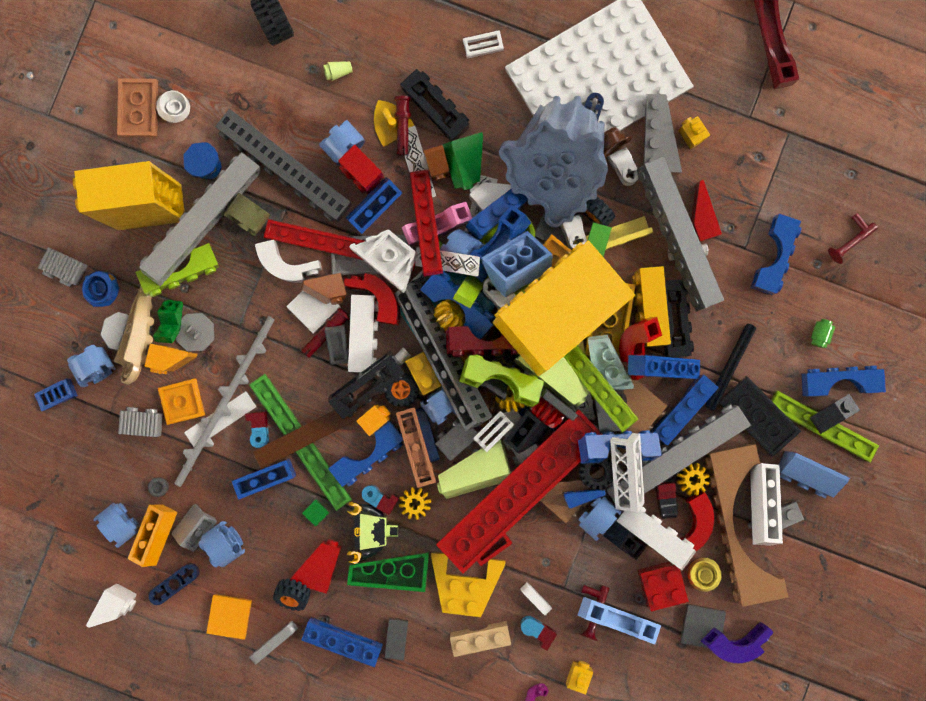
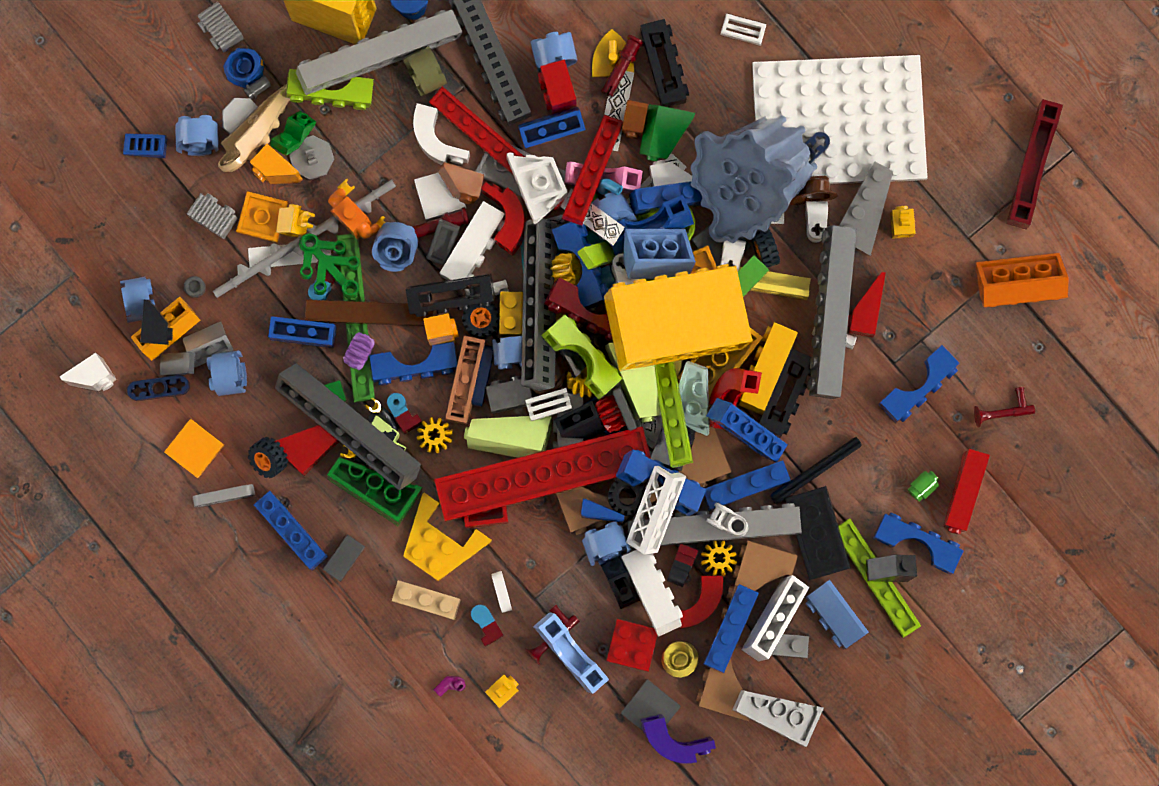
camera: 30 degrees right, 5 degrees down
(119, 299) = (257, 87): none -> dark grey pin
(140, 542) = (155, 326): none -> black slope
(178, 558) = (177, 363): none -> dark grey tile
(208, 392) = (293, 221): none -> yellow brick
(251, 364) = (351, 215): none -> orange torso
(253, 413) = (328, 263): none -> green plant
(300, 369) = (395, 246): none -> medium blue brick
(318, 470) = (359, 351): none -> medium lavender gear
(343, 537) = (348, 426): none -> dark grey brick
(445, 228) = (608, 184): none -> dark azure arm
(687, 449) = (726, 520): none -> white piece
(739, 548) = (731, 628): none -> blue arch
(810, 578) = (788, 718): none -> wing
(812, 127) = (1022, 280): none -> orange slope
(859, 319) = (966, 490): none -> red slope

